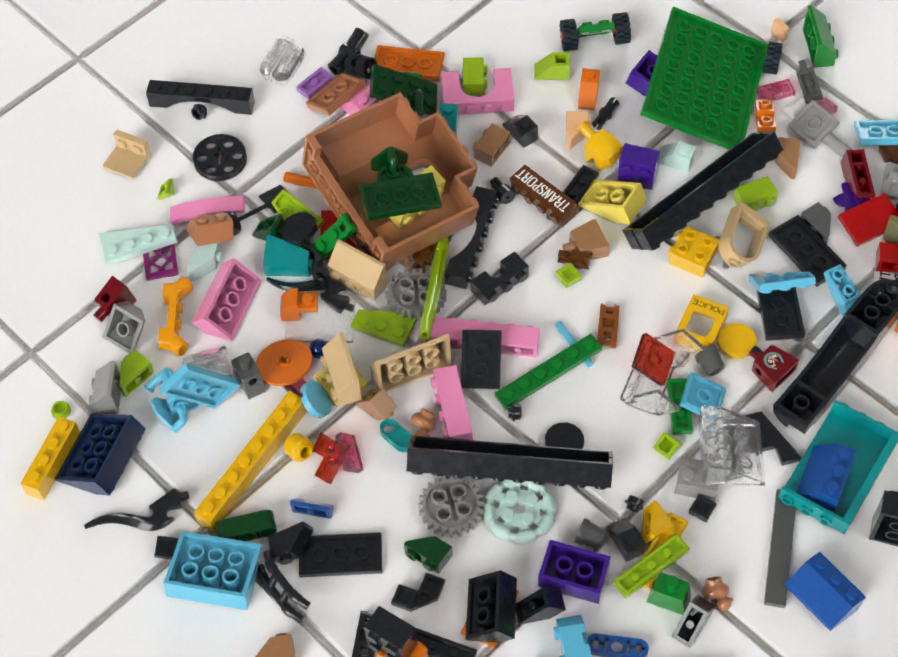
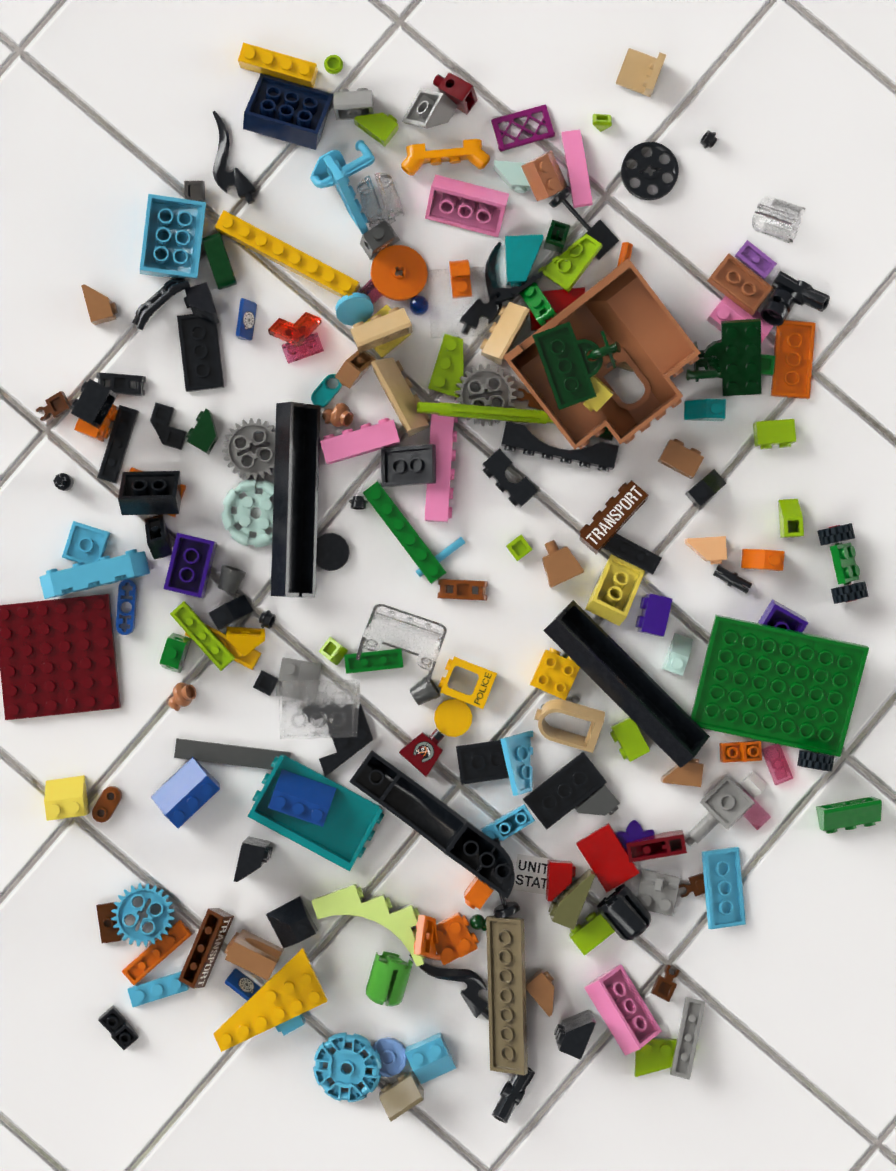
camera: 85 degrees right, 30 degrees up
(134, 242) = (531, 96): light aqua wing -> none
(167, 93) = (727, 129): black arch -> none
(298, 228) = (551, 266): black tile -> none
(298, 447) = (303, 299): yellow head -> none
(498, 100) = (744, 464): bright pink arch -> none
(504, 191) = (618, 475): black piece -> none
(579, 259) = (536, 558): reddish brown plate -> none
(600, 147) = (679, 574): yellow piece -> none
(653, 359) = (417, 634): clear red tile -> none
(693, 620) = (153, 675): slope -> none
(700, 393) = (383, 683): medium azure tile -> none
(780, 29) = (863, 770): light nougat tile -> none
(808, 82) = (788, 799): dark grey hinge -> none

